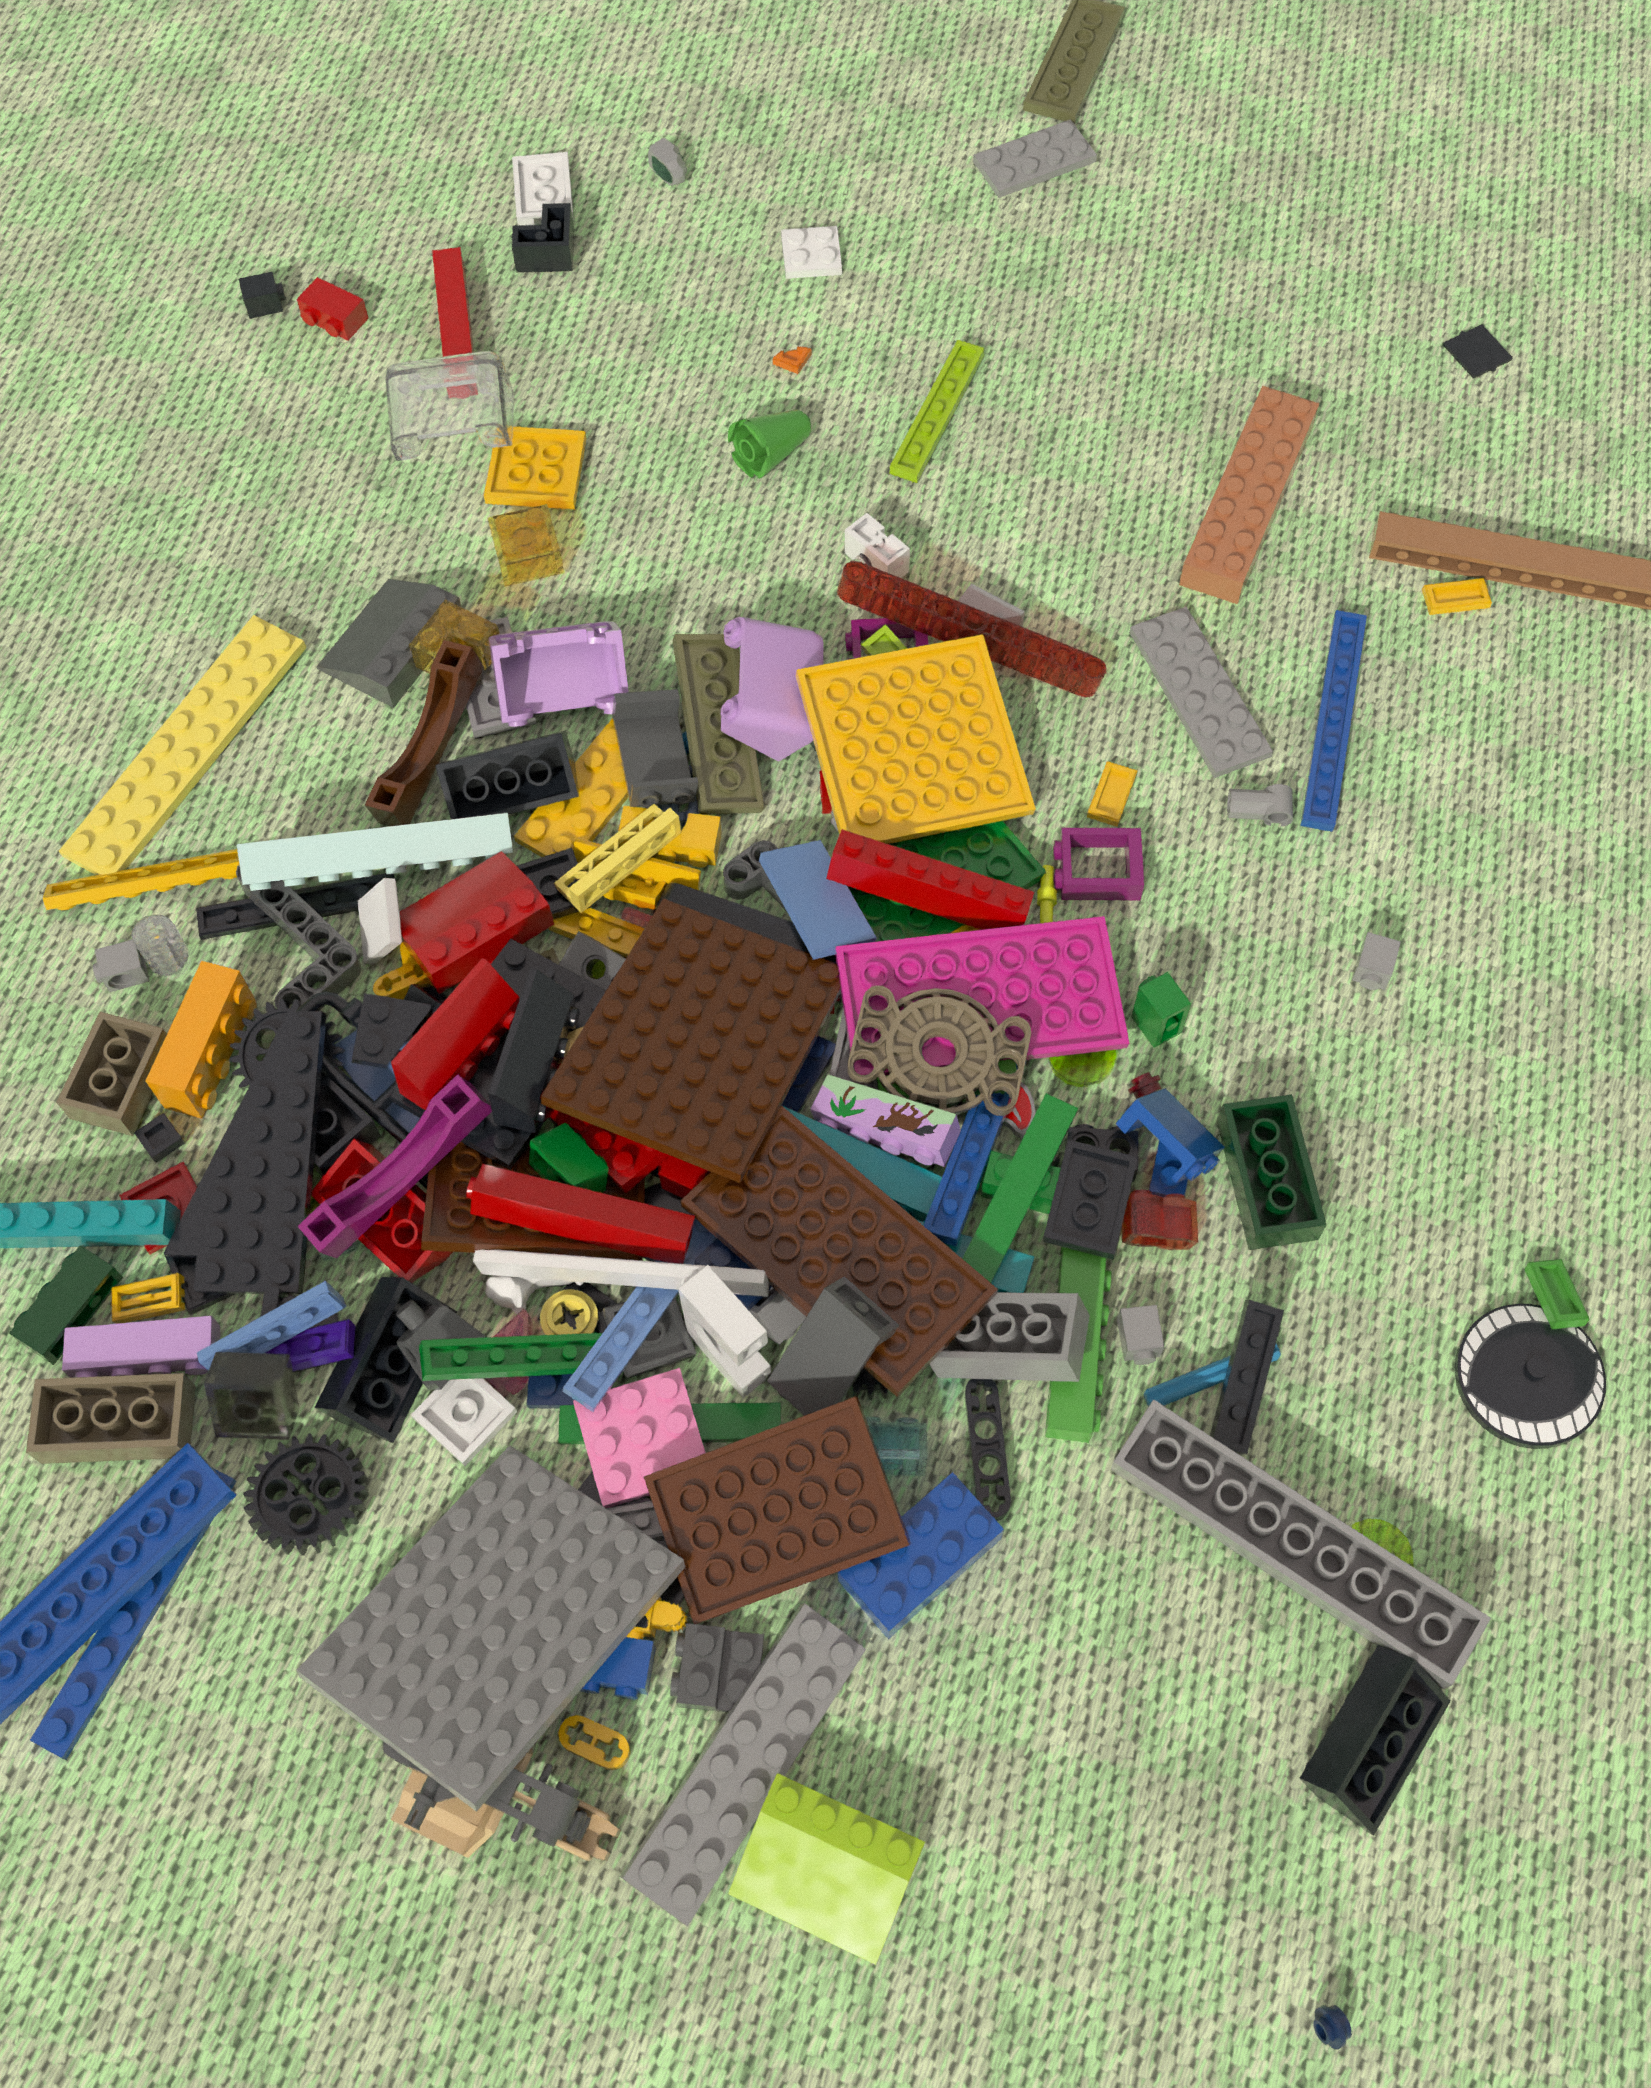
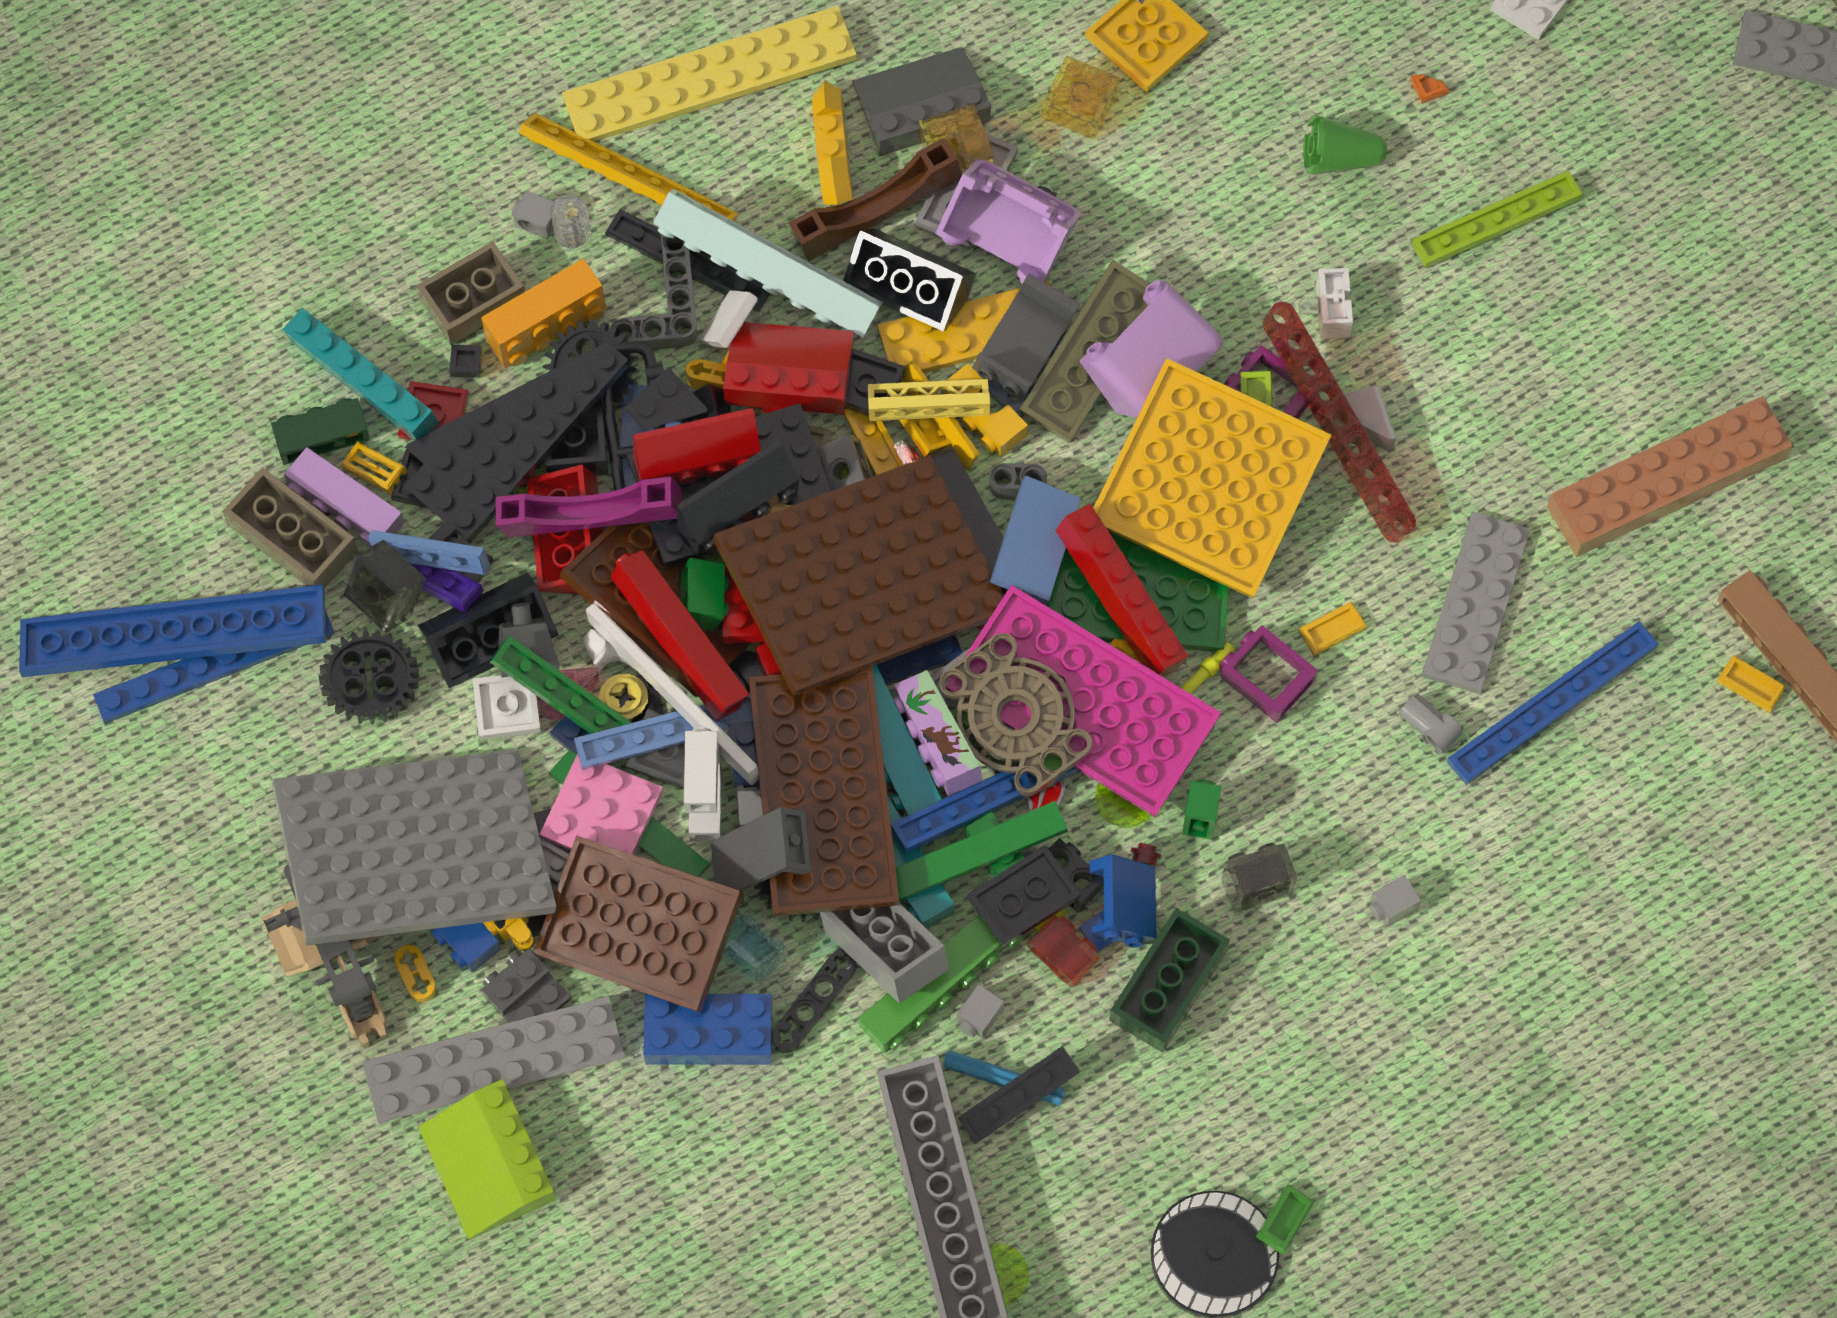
camera: 40 degrees right, 5 degrees up
(345, 723) = (832, 144): none -> yellow brick
(1258, 1026) = (1258, 877): none -> clear smoke brick

